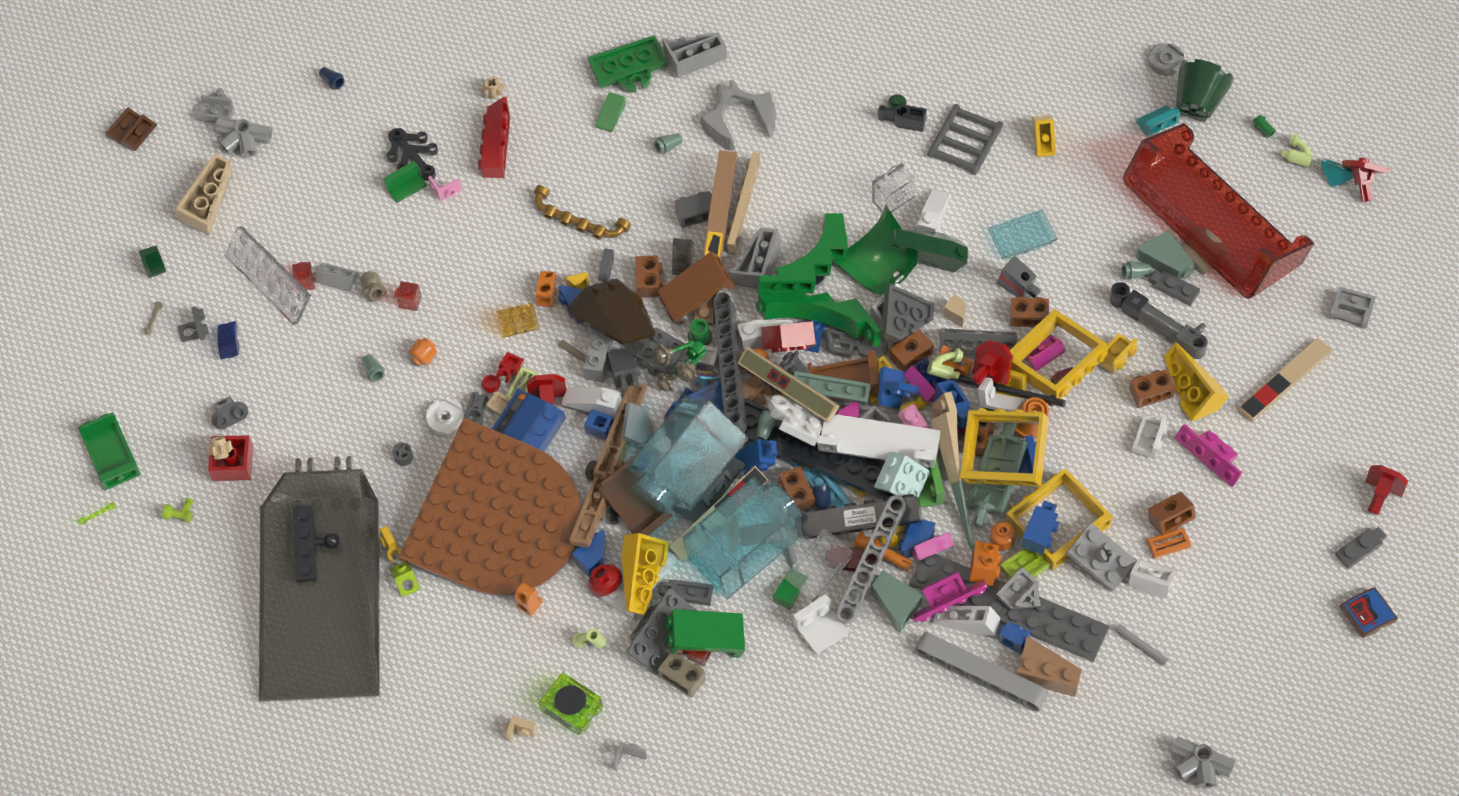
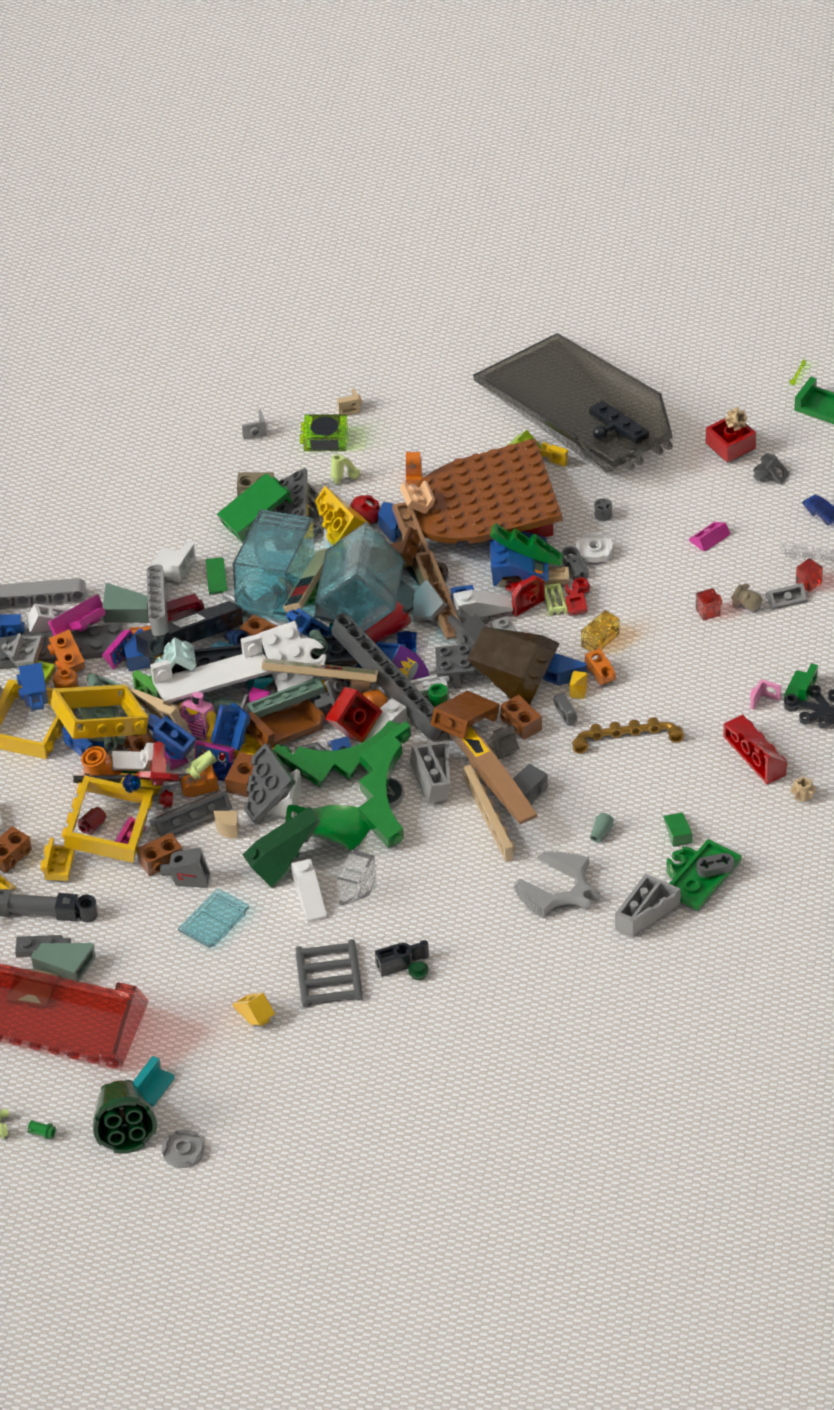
camera: 145 degrees right, 15 degrees down
(185, 514) = (732, 399): lime piece -> none
(339, 377) = (710, 535): none -> dark pink slope
(373, 368) = (686, 549): sand green cone -> none
(422, 351) = (656, 575): orange head -> none
(511, 424) = (531, 547): none -> green slope
(558, 540) = (418, 498): none -> light nougat bracket
(616, 54) = (715, 865): none -> dark grey beam
(686, 370) = (414, 642): dark tan plant -> none
(819, 565) = (200, 586): clear piece -> none
(1022, 360) = (131, 783): none -> clear blue plate
(1135, 269) = (88, 934): sand green cone -> none

